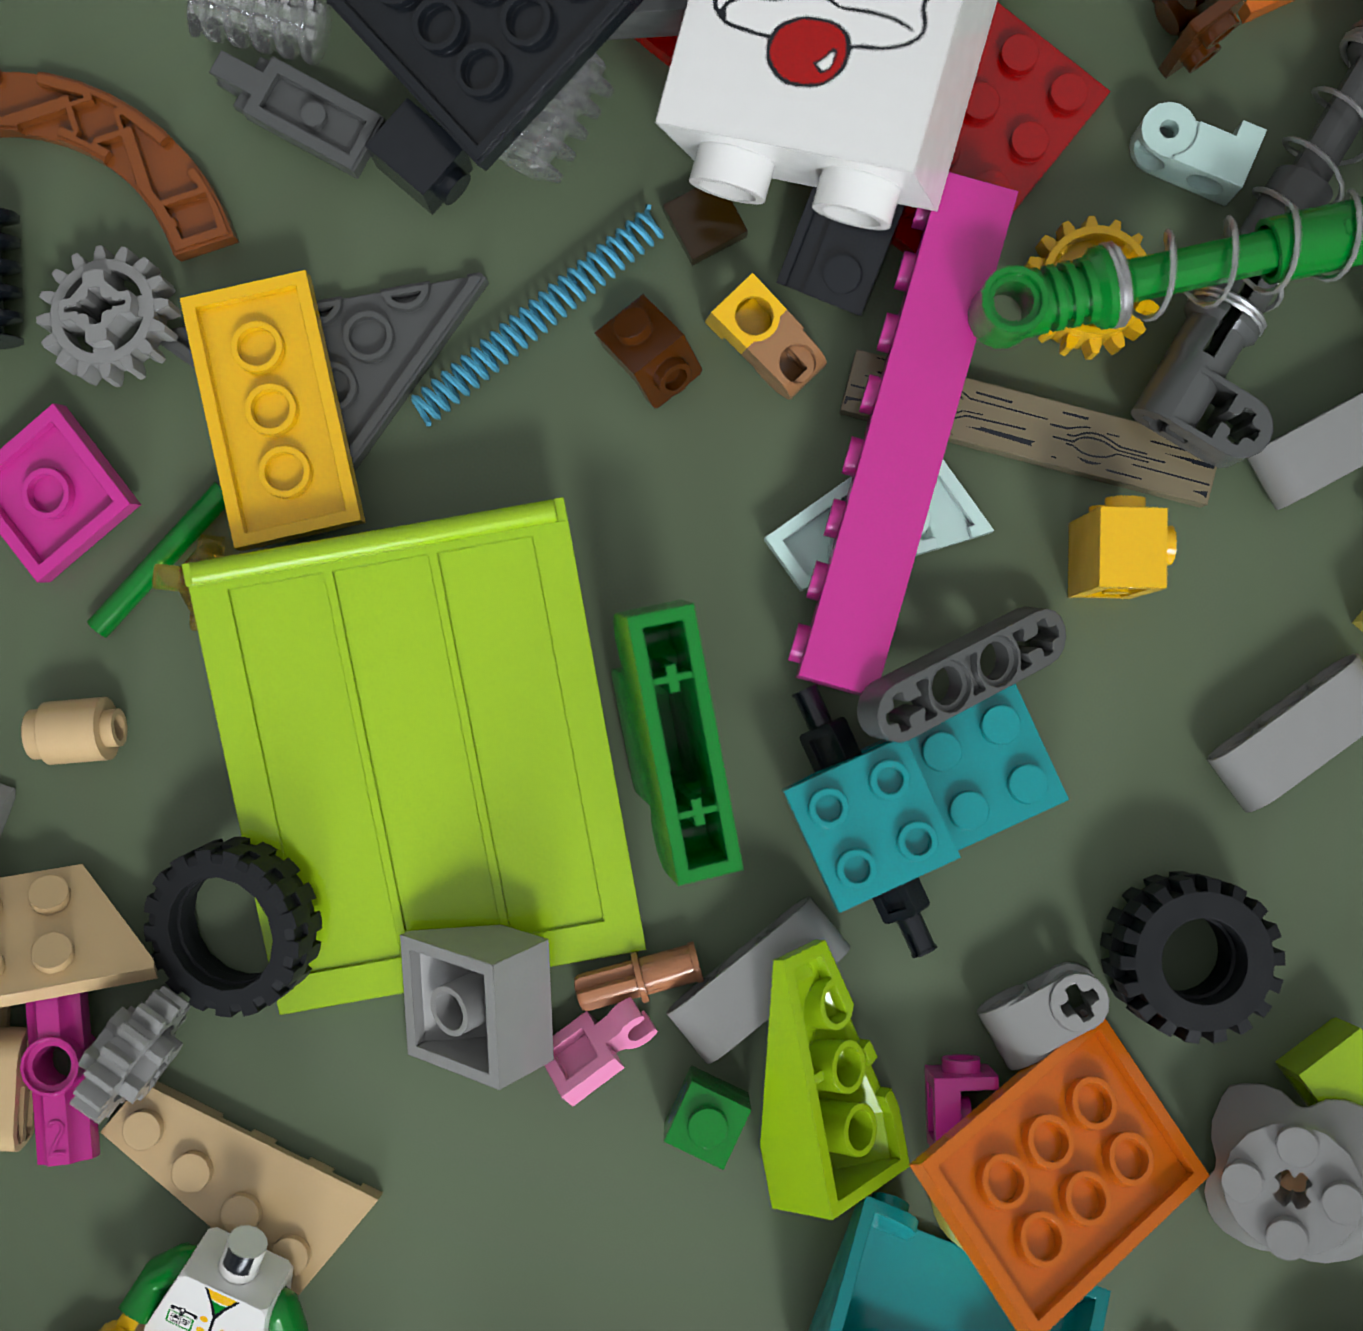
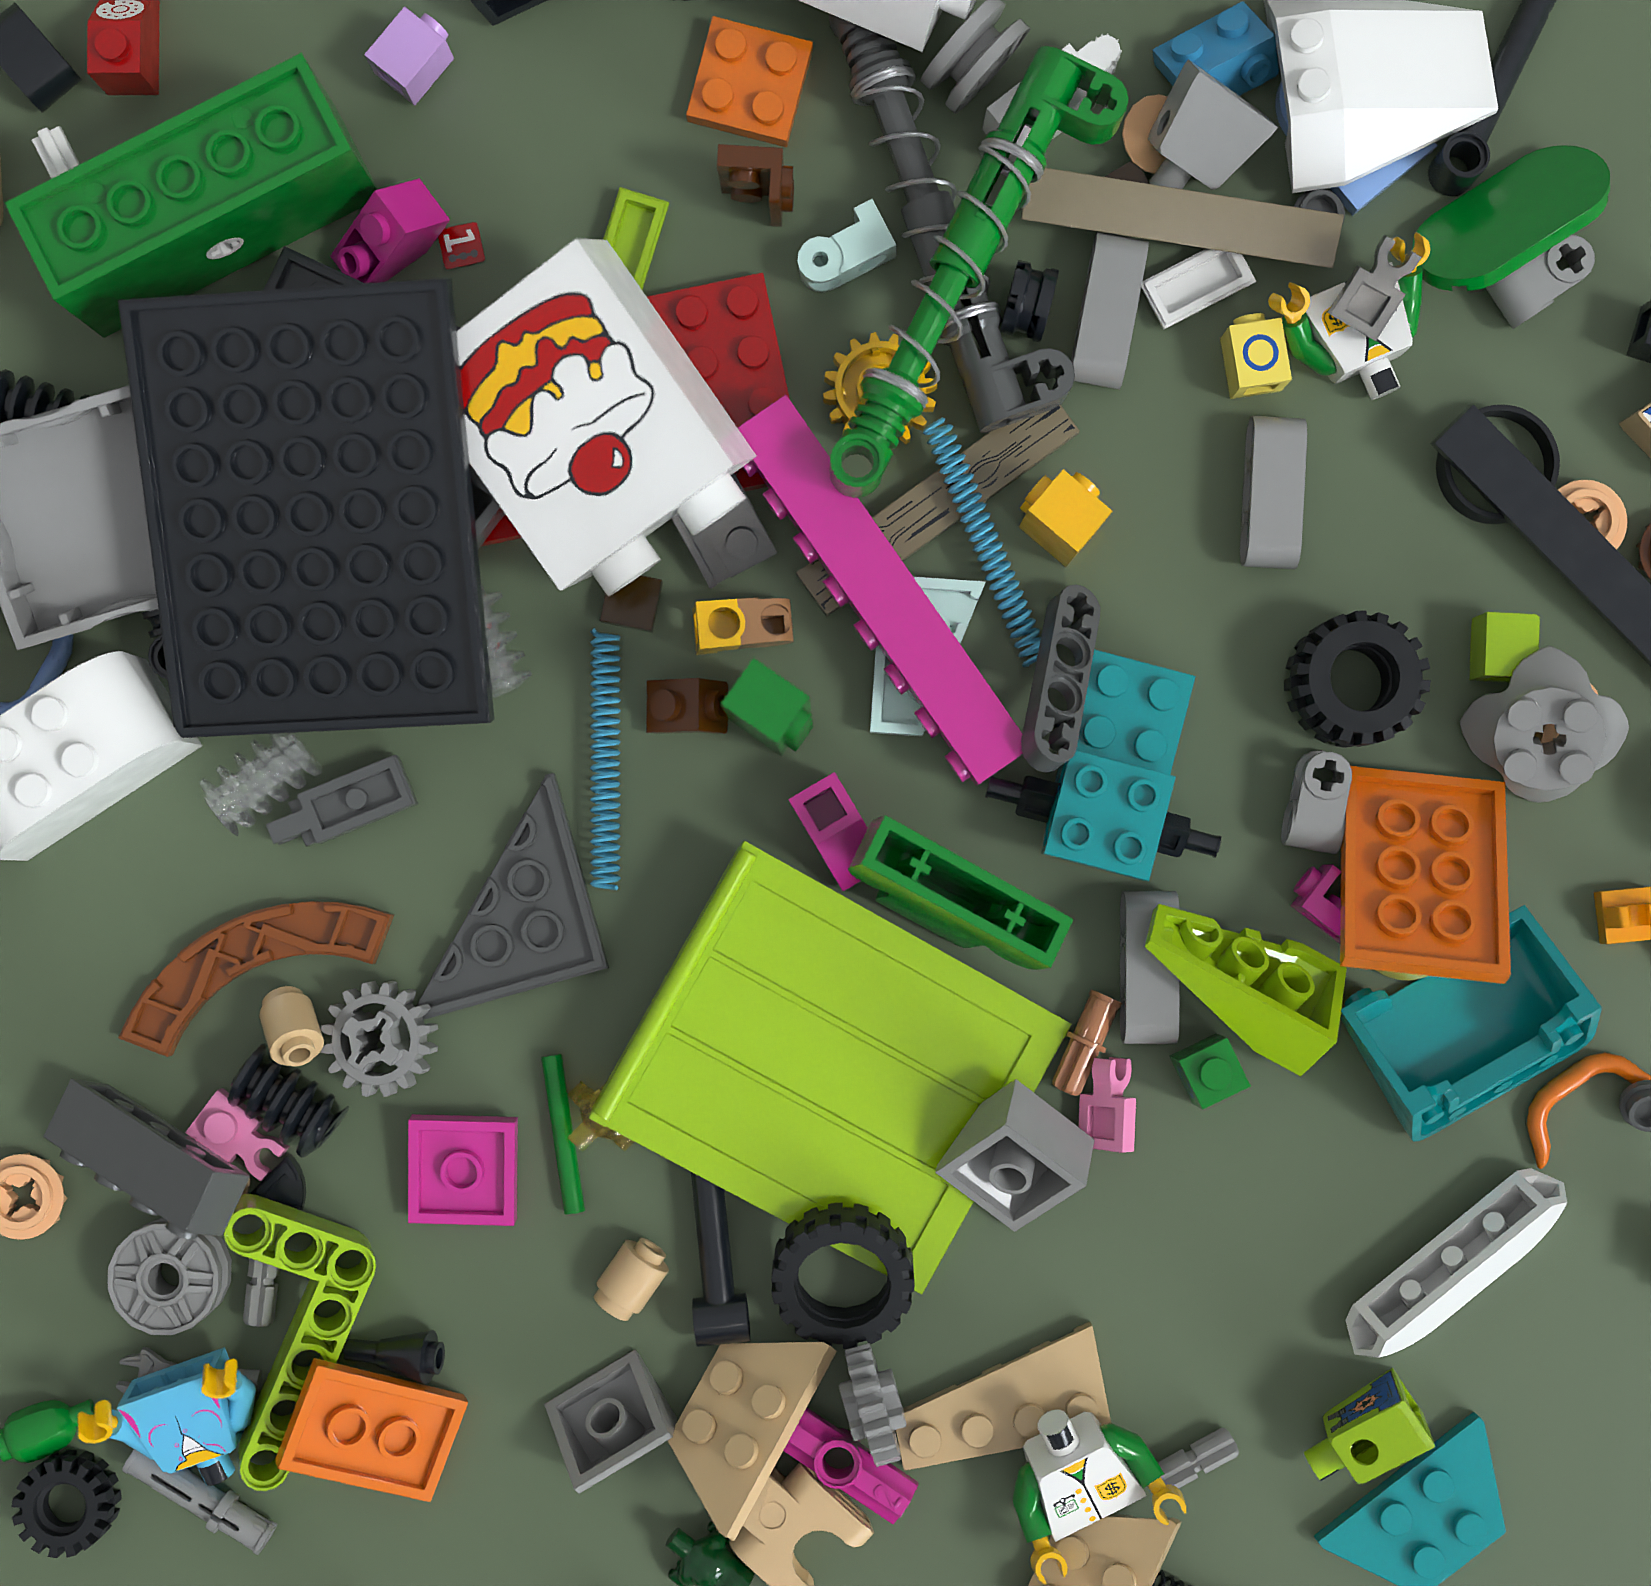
camera: 50 degrees left, 0 degrees up
(51, 224) = (290, 1026): none -> tan brick
(108, 840) = (720, 1313): none -> black piece
(272, 410) = (530, 981): yellow plate -> none
(420, 157) = (442, 752): black brick -> none
(647, 567) = (832, 825): none -> dark pink slope
(707, 410) = (769, 708): none -> green brick
(1031, 496) = (981, 534): none -> medium azure piece
(1292, 355) = (1029, 301): none -> black wheel

